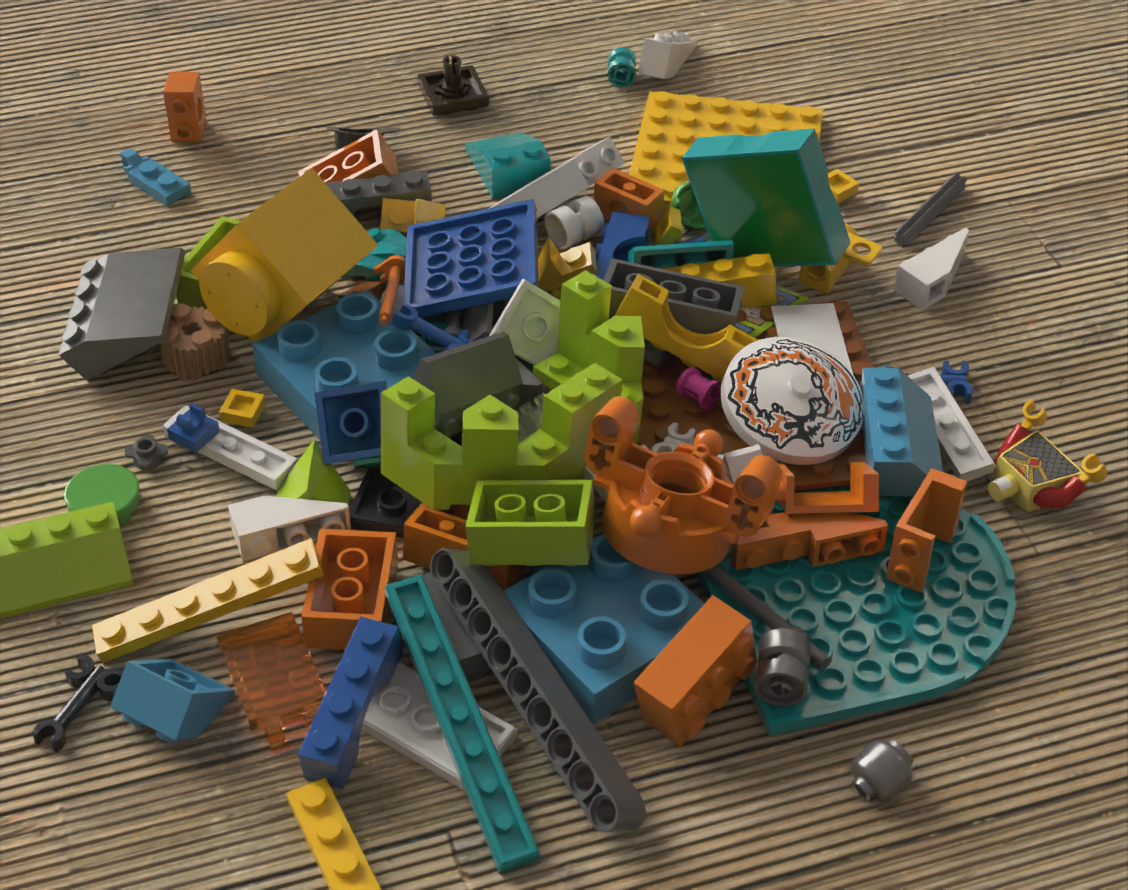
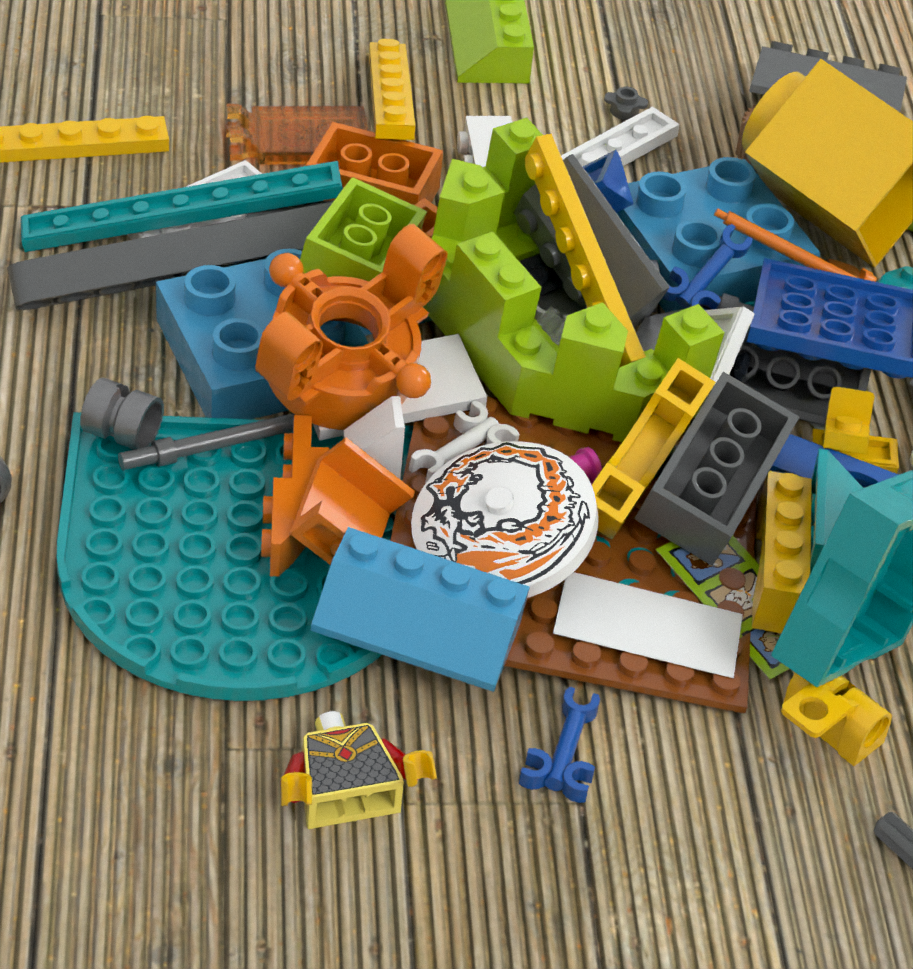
camera: 100 degrees right, 0 degrees up
(87, 683) = (334, 41): black bar -> none
(104, 485) = (571, 69): bright green tile -> none
(169, 698) = (299, 69): dark azure slope -> none
(193, 429) = (632, 115): blue tile -> none
(242, 408) = (670, 160): yellow plate -> none
(336, 729) = (194, 134): blue arch -> none
(505, 365) = (576, 237): none -> yellow plate
(696, 671) = (146, 346): orange brick -> none
(929, 274) = (785, 820): white slope -> none
(930, 515) = (239, 545): orange panel -> none
(954, 433) = (469, 719): white plate -> none

